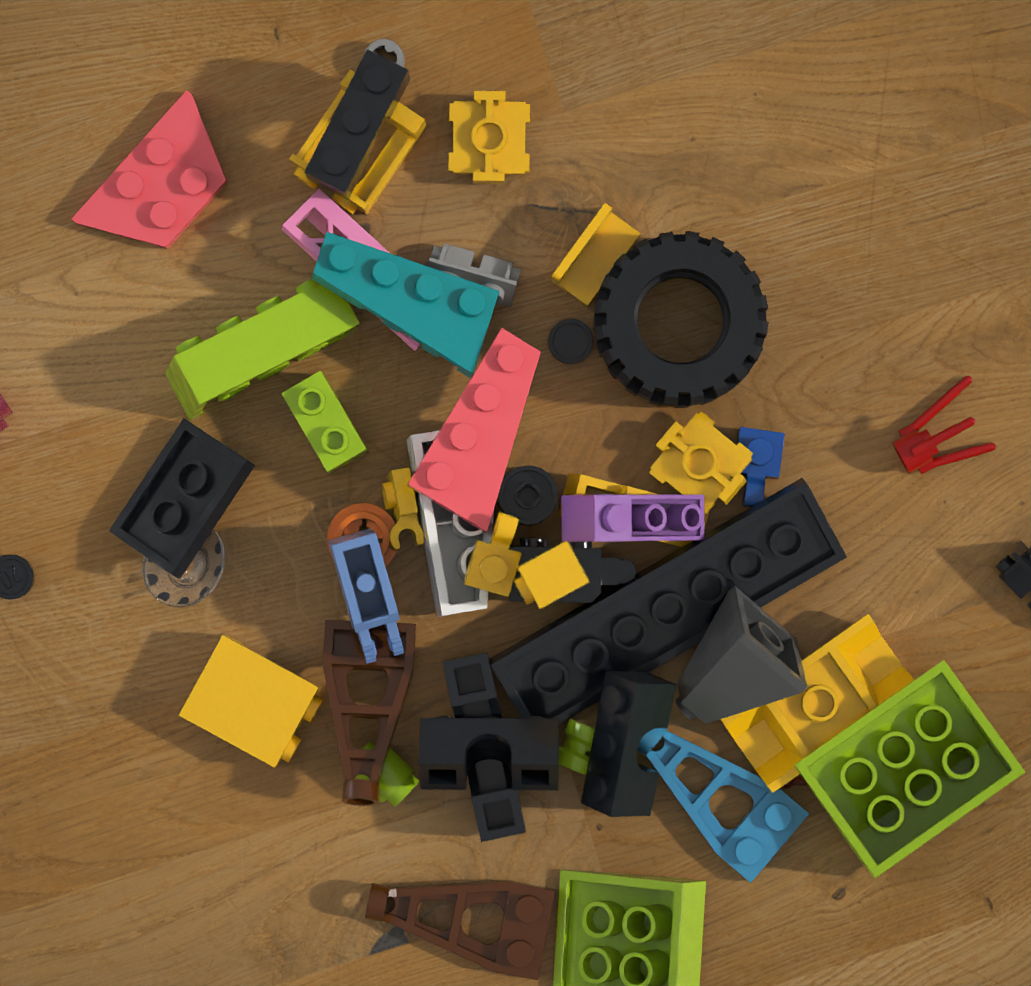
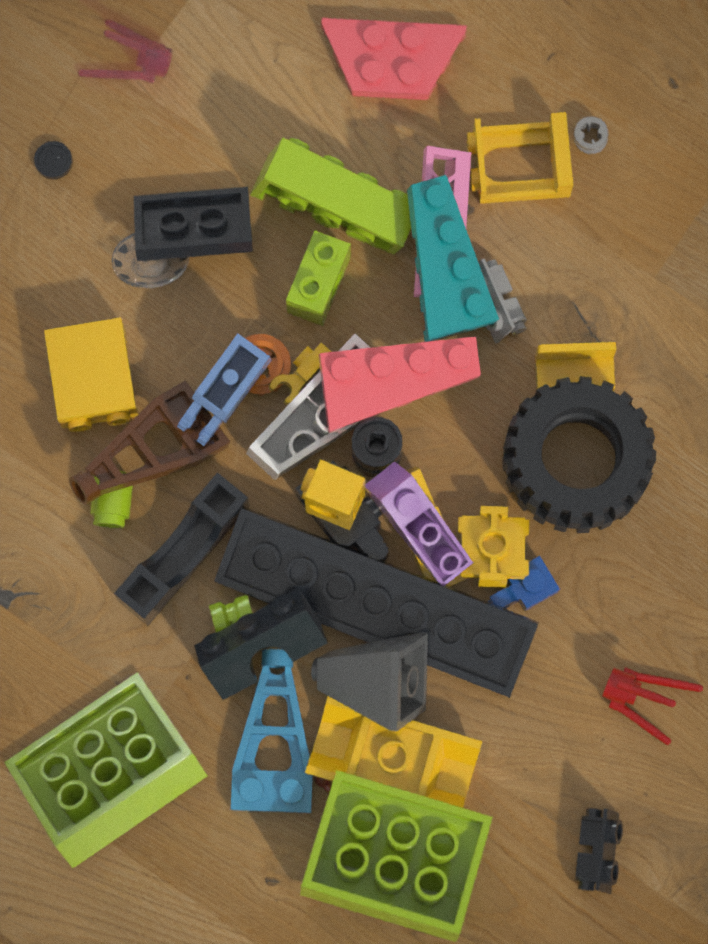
camera: 50 degrees right, 10 degrees down
(355, 124) = (559, 132): black arch -> none
(455, 744) = (165, 525): black arch -> none
(489, 137) = (596, 238): yellow piece -> none
(494, 563) = (310, 448): yellow plate -> none
(522, 930) = (75, 678): reddish brown plate -> none
(570, 341) = (504, 399): black piece -> none

